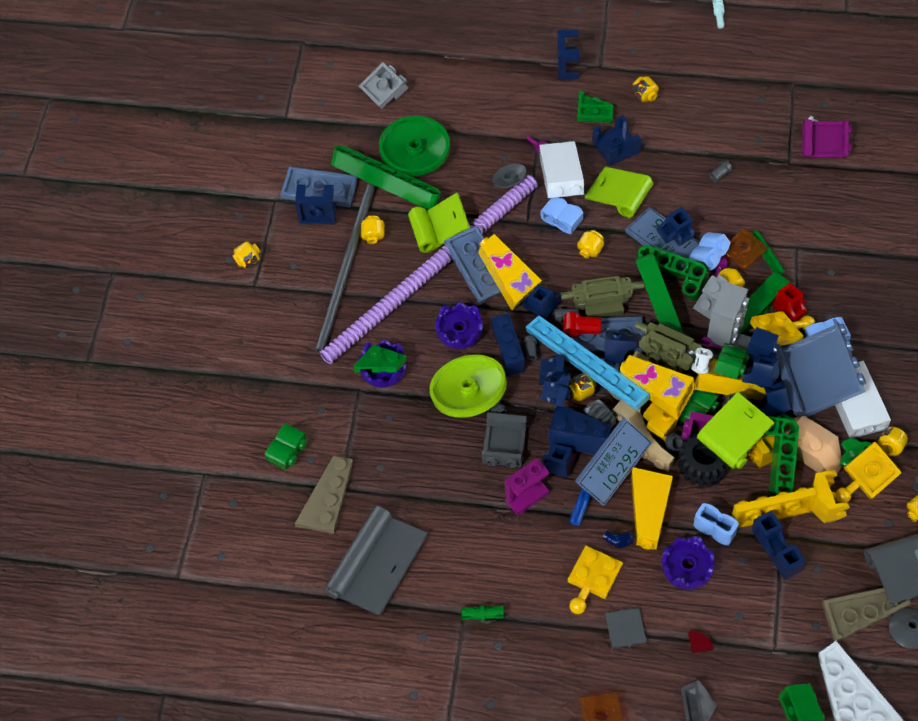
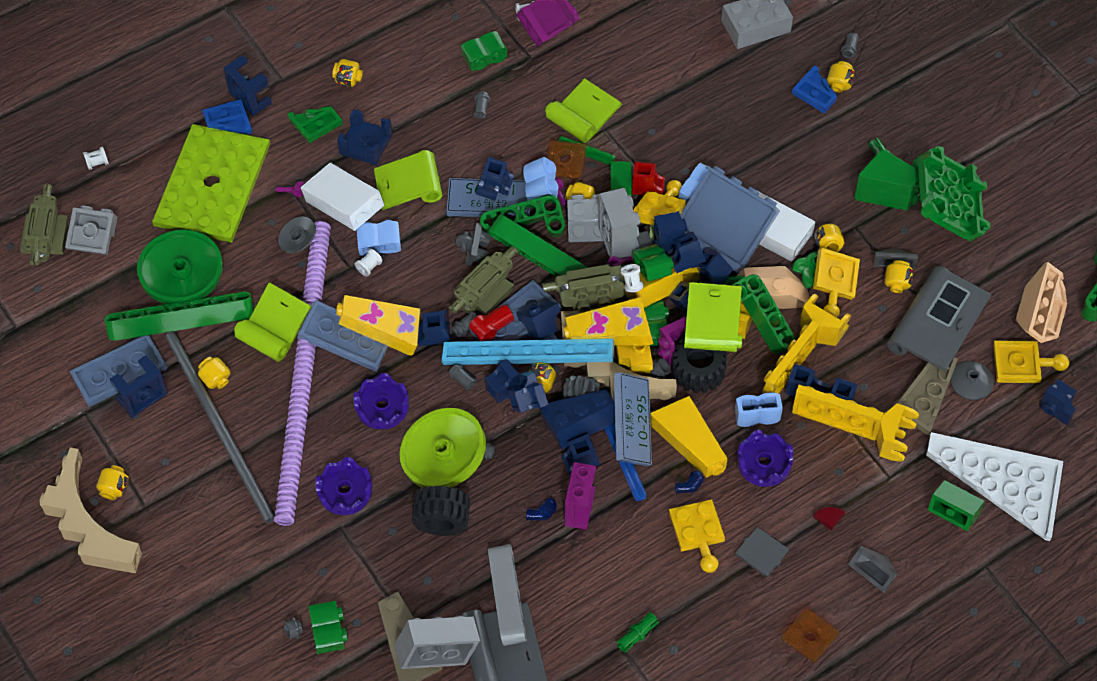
camera: 45 degrees left, 0 degrees up
(203, 265) = (96, 544): none -> tan arch
(266, 431) = (292, 628): none -> dark grey plate
(337, 509) = (436, 642): none -> light grey brick
(354, 64) = (44, 229): none -> olive piece
(380, 360) = (344, 483): green wing -> none
(416, 516) = (507, 595): none -> light grey beam
(424, 425) = (441, 510): none -> black tyre
(430, 41) = (95, 158): none -> white bush
(472, 123) = (219, 208): none -> lime plate
(496, 481) = (544, 512): none -> clear blue arm
(504, 440) = (516, 473): dark grey panel -> none
(510, 349) = (428, 378): dark blue arch -> none
(539, 69) = (228, 117): none -> blue wing
(541, 226) = (367, 263): none -> white bush
(590, 244) = (429, 246): yellow head -> none
(617, 257) = (472, 243): none -> dark grey hips
(757, 135) = (484, 51): none -> green brick
(791, 224) = (583, 110): none -> lime door
(799, 609) = (858, 419): none -> yellow hinge

